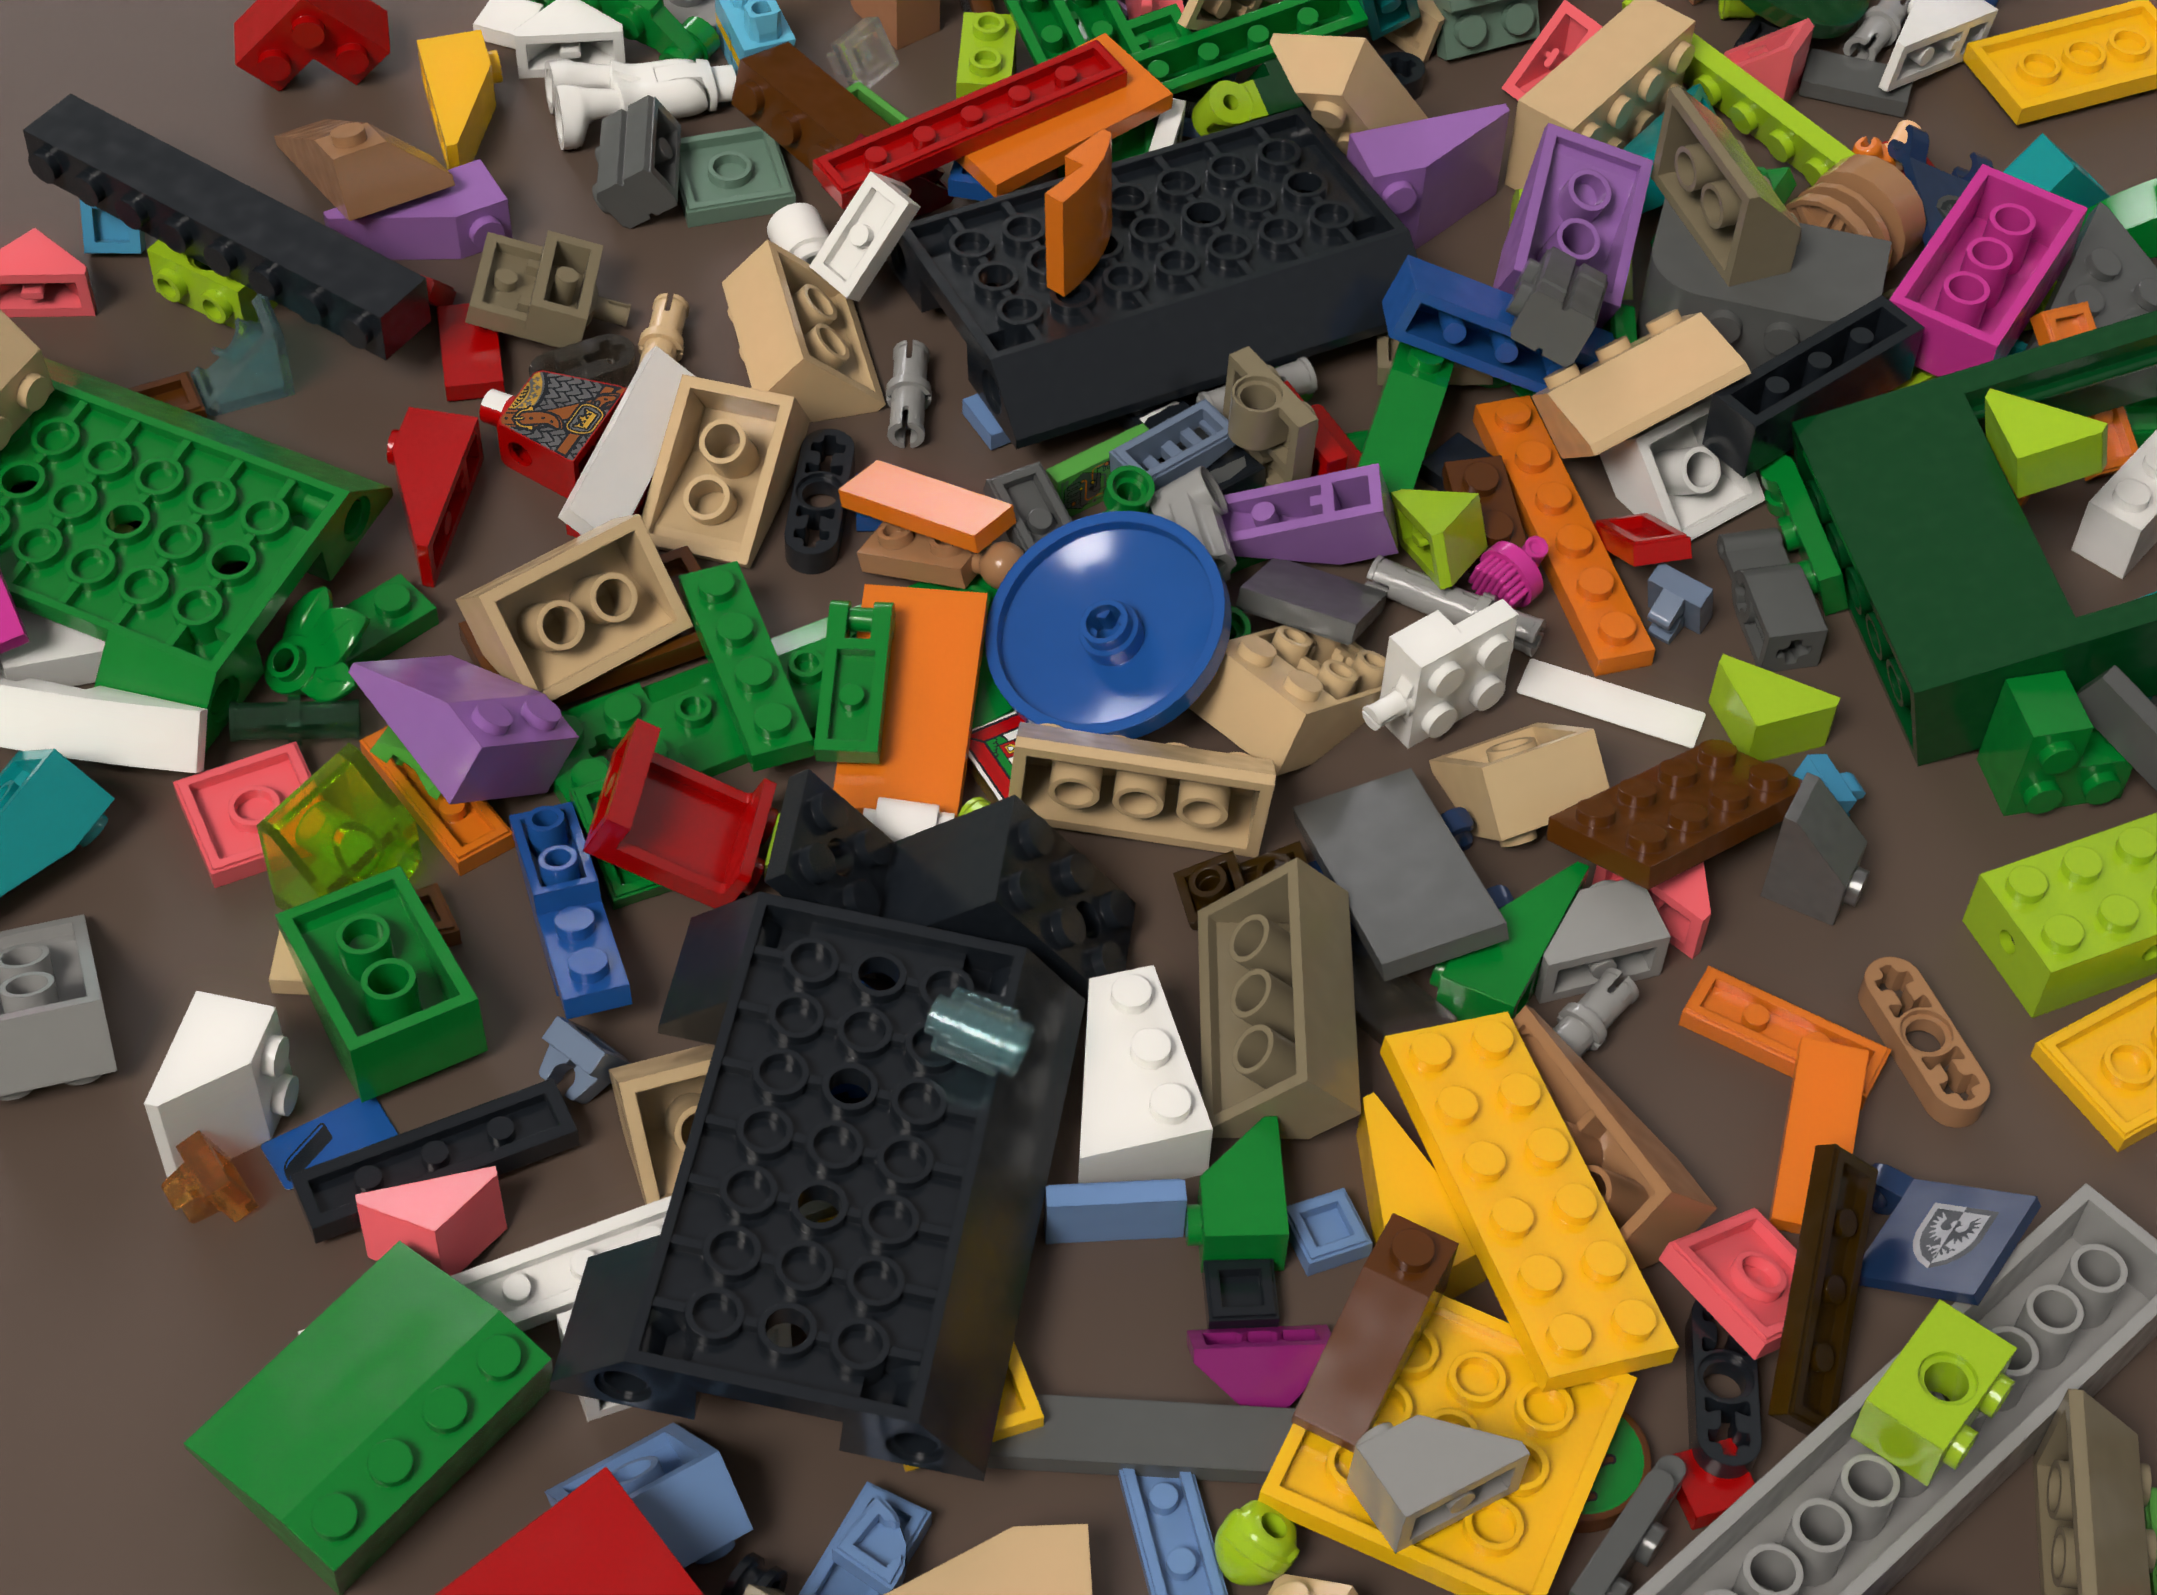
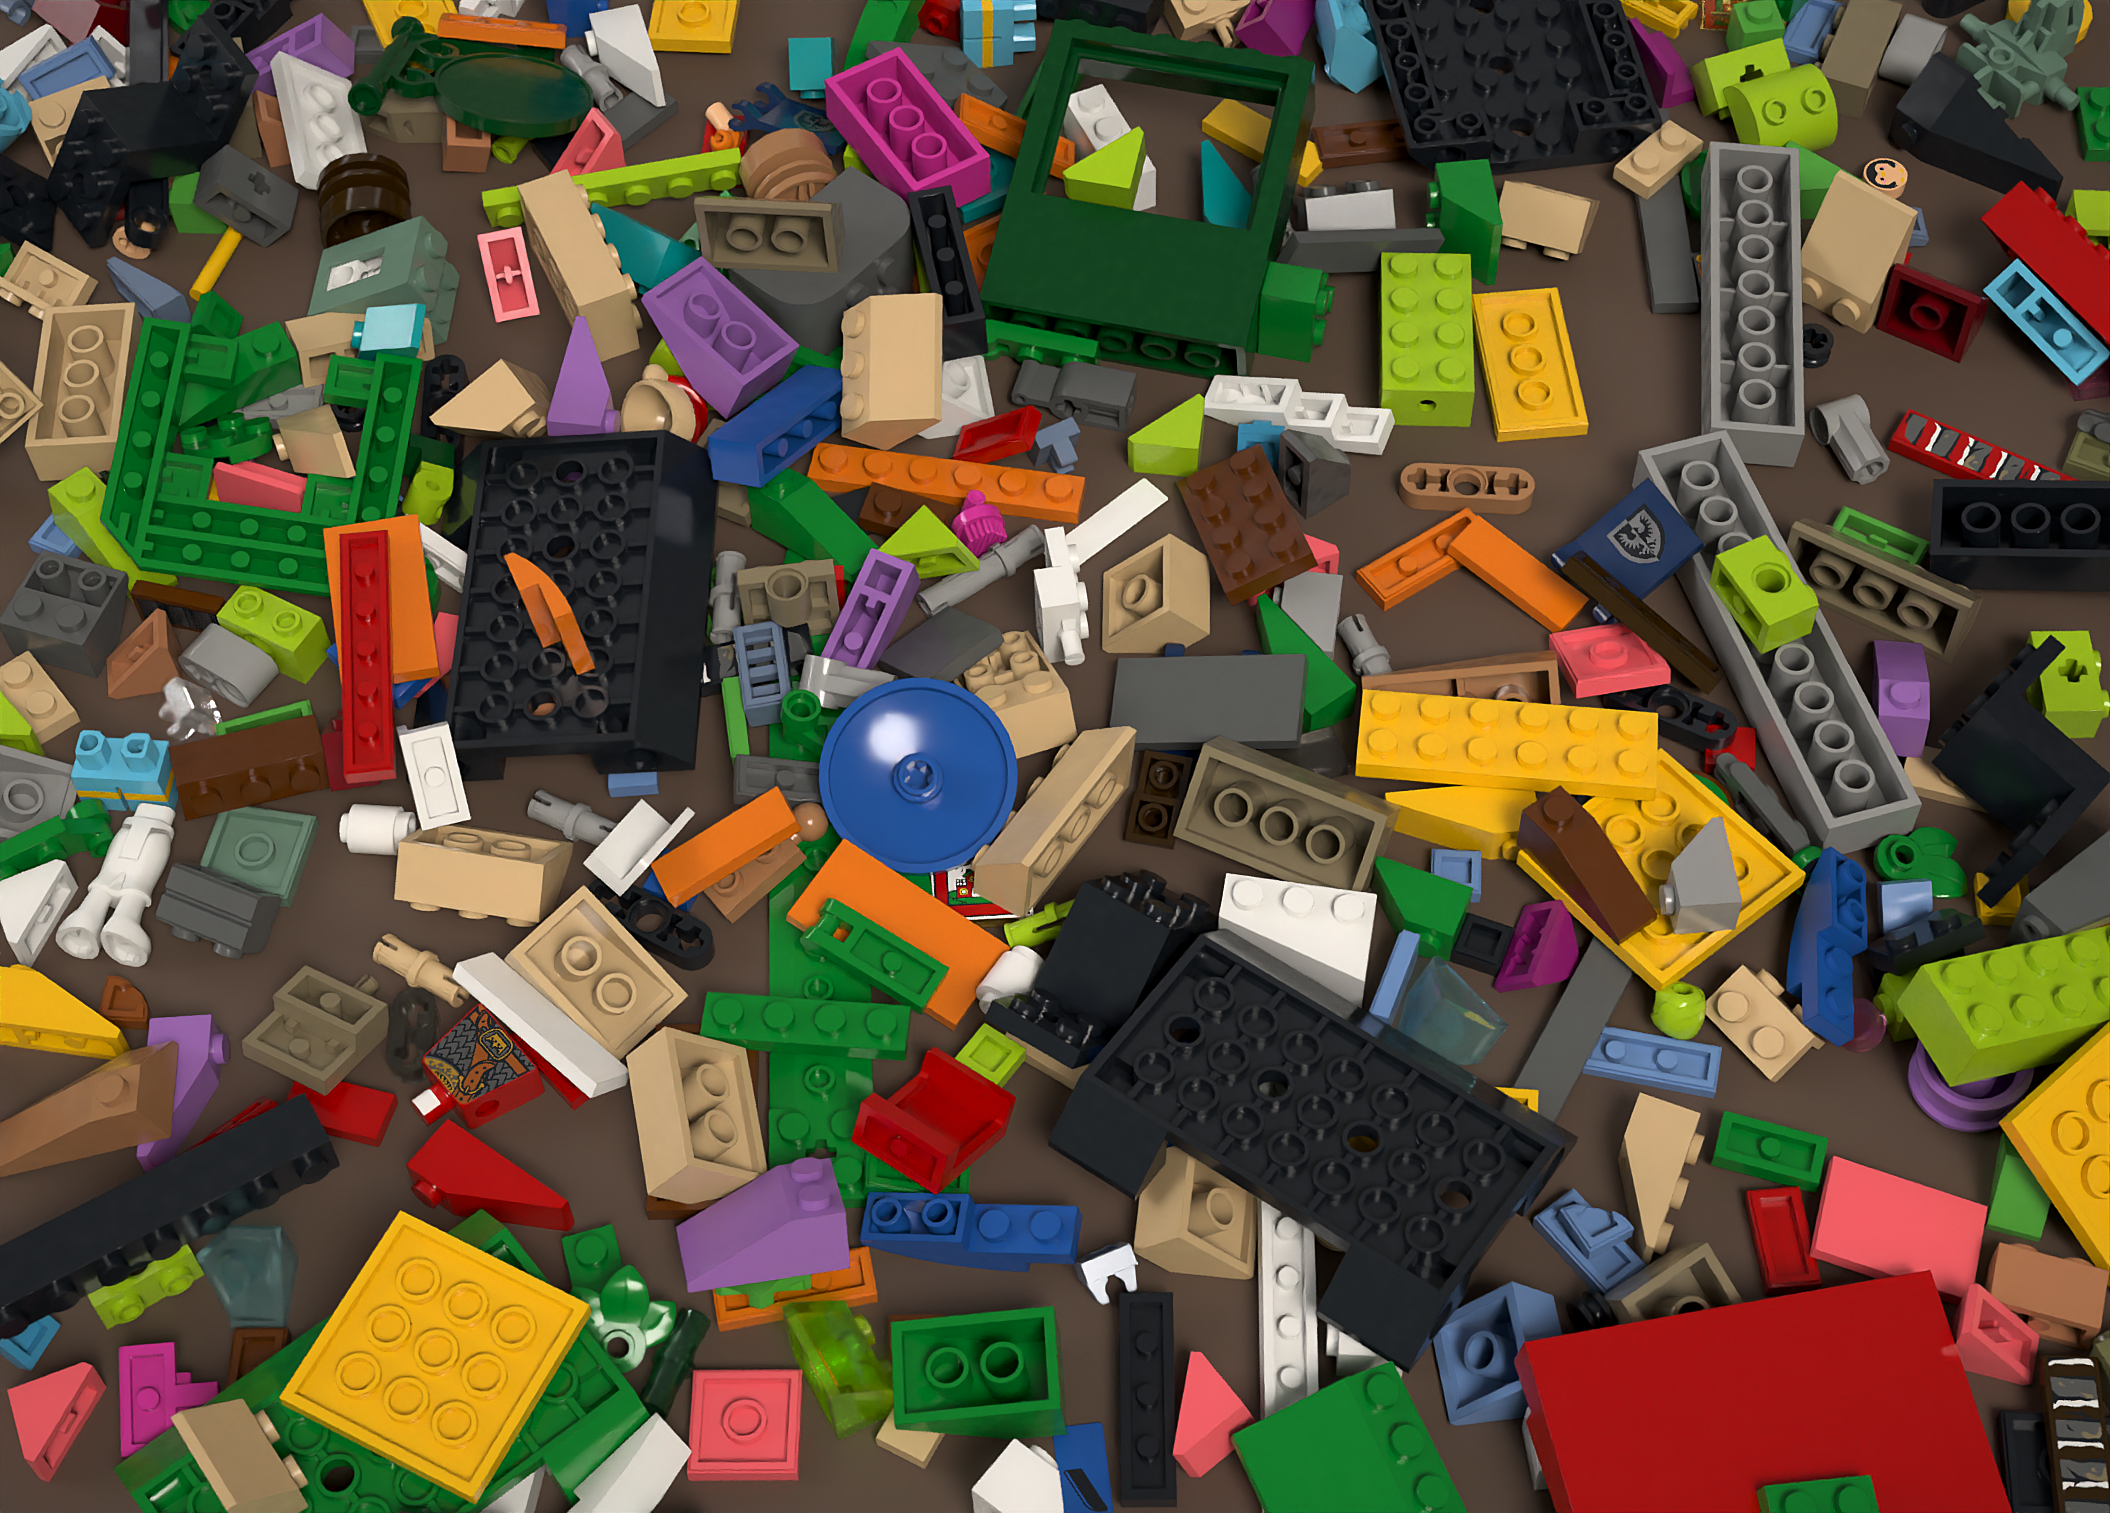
camera: 60 degrees left, 5 degrees up
(89, 334) = (154, 1392): none -> dark pink hinge
(170, 491) = (436, 1356): none -> yellow plate
(508, 153) = (124, 1005): none -> dark orange tile
(905, 438) = (633, 846): none -> white panel
(929, 60) = (228, 665): none -> light grey beam
(978, 1032) = (1278, 983): clear light blue brick -> none
(1095, 1286) = (1449, 1016): none -> clear light blue slope
(1466, 238) = (664, 404): none -> tan piece
(1556, 305) = (803, 374): dark grey brick -> none
(1904, 826) = (1284, 404): none -> white slope

